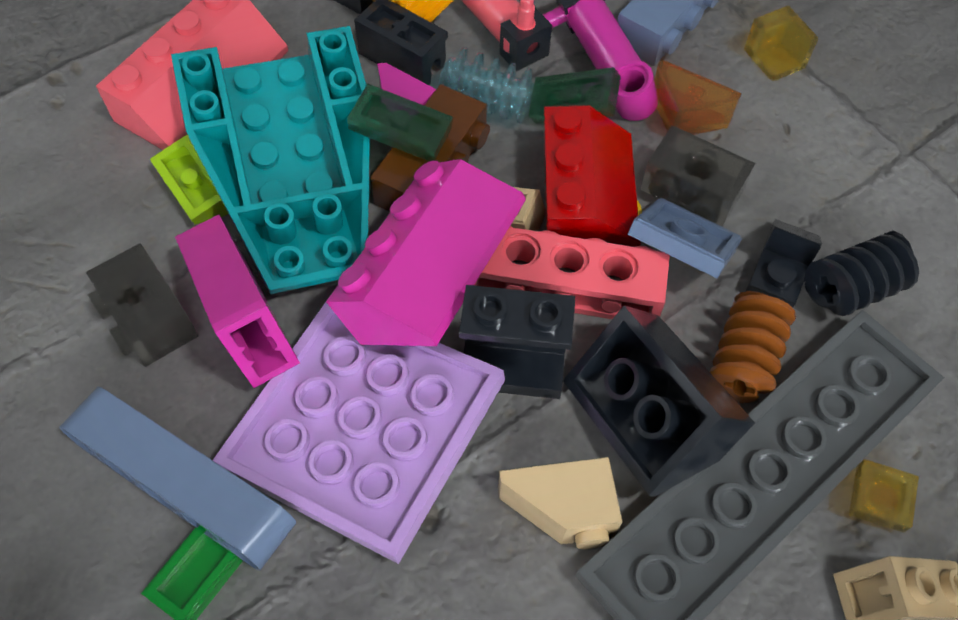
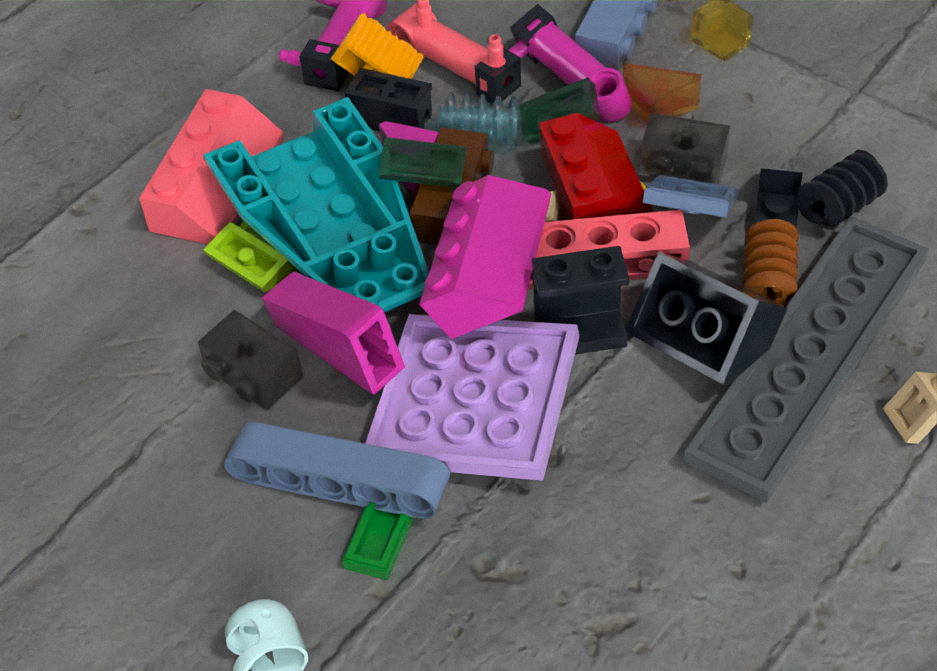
camera: 10 degrees left, 10 degrees down
(566, 500) = (656, 408): tan slope -> none
(884, 496) = (905, 344): clear yellow plate -> none

